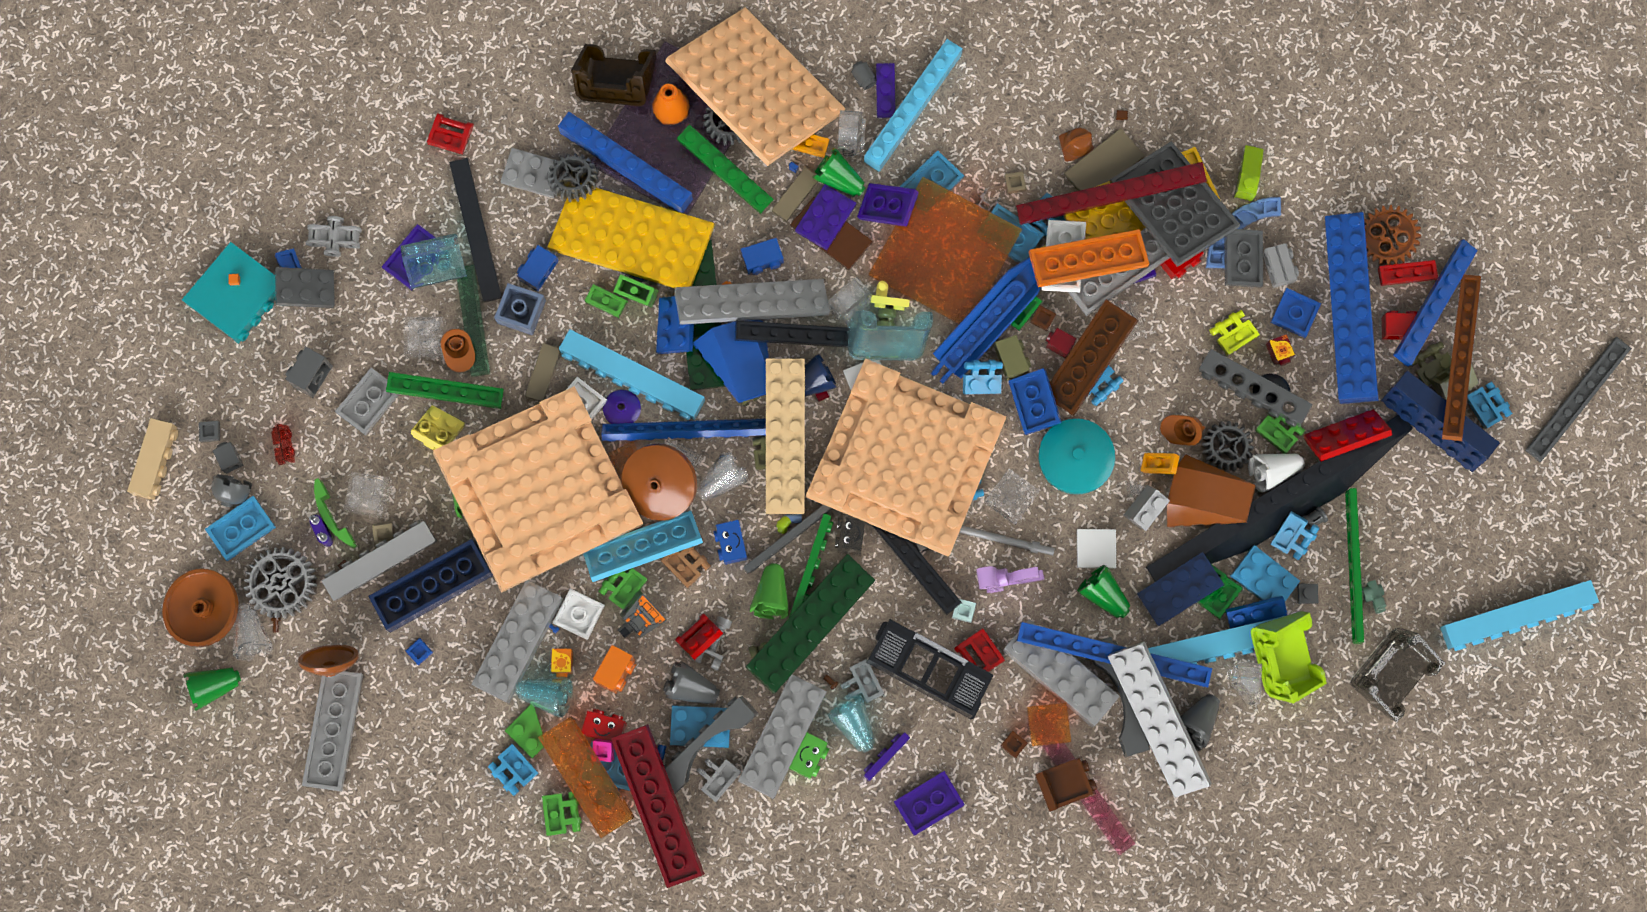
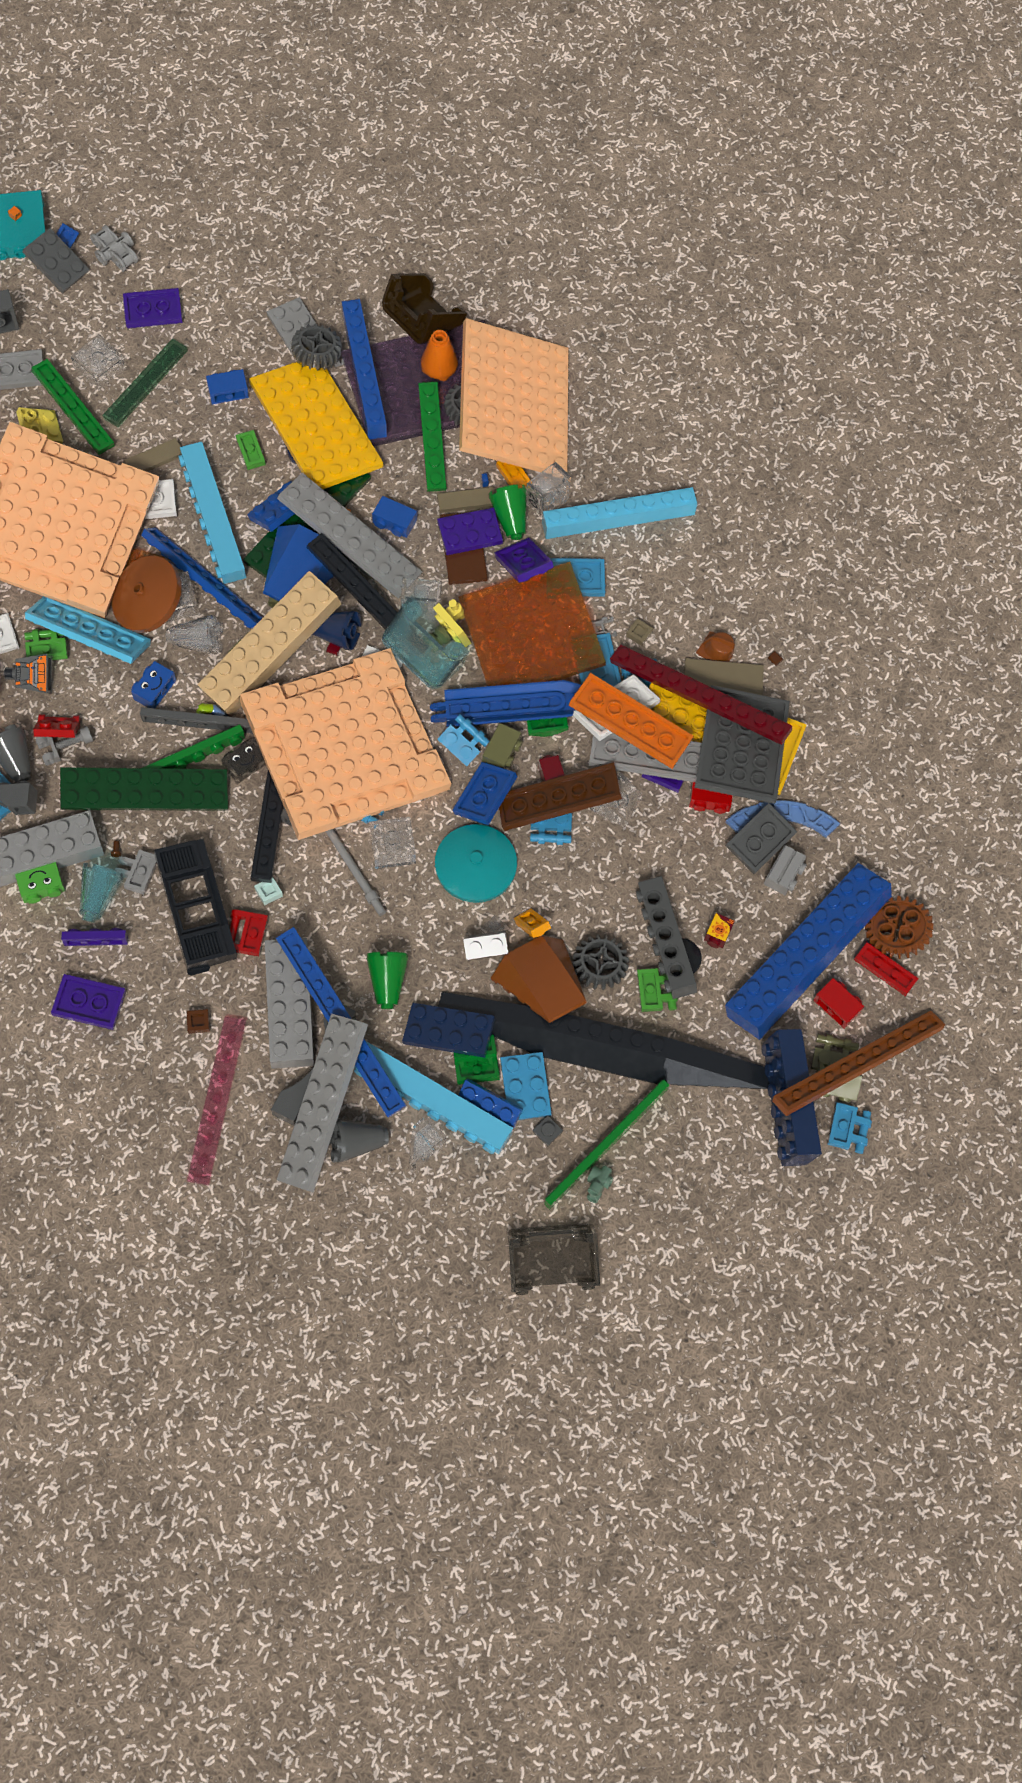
camera: 40 degrees right, 10 degrees down
(433, 261) = (159, 317): clear light blue slope -> none
(449, 139) = (263, 257): red plate -> none
(458, 350) = (110, 387): dark orange piece -> none
(475, 230) = (214, 328): black tile -> none
(520, 309) = (183, 400): sand blue brick -> none
(628, 414) = (185, 536): dark purple dish -> none
(636, 291) = (277, 459): bright green brick -> none
(683, 569) = (99, 672): medium nougat plate -> none
(771, 594) = (139, 745): bright green cone -> none
(863, 75) = (605, 463): dark grey brick -> none
(885, 89) = (613, 486): dark purple plate -> none
(995, 579) = (315, 890): lavender piece -> none
(1043, 318) = (557, 743): reddish brown plate -> none
(1048, 724) = (238, 1029): clear orange plate -> none
(1066, 783) = (202, 1085): reddish brown panel -> none
(1096, 548) = (418, 941): white tile -> none
(1182, 429) = (578, 916): dark orange piece -> none
(1237, 337) = (694, 891): neon yellow plate -> none
(1249, 173) = (831, 784): lime slope -> none
(1274, 469) = (619, 1010): white cone -> none
(1285, 657) = (476, 1155): lime windscreen -> none
(1289, 533) = (581, 1068): dark azure plate -> none
(1295, 313) = (761, 916): blue plate -> none
(1316, 517) = (607, 1075): dark grey bush -> none
(1347, 435) = (705, 1039): red plate -> none
(1435, 303) = (882, 1007): blue plate -> none
(1520, 614) = (705, 1311): medium azure brick -> none
(1578, 399) = (932, 1194): dark grey tile -> none

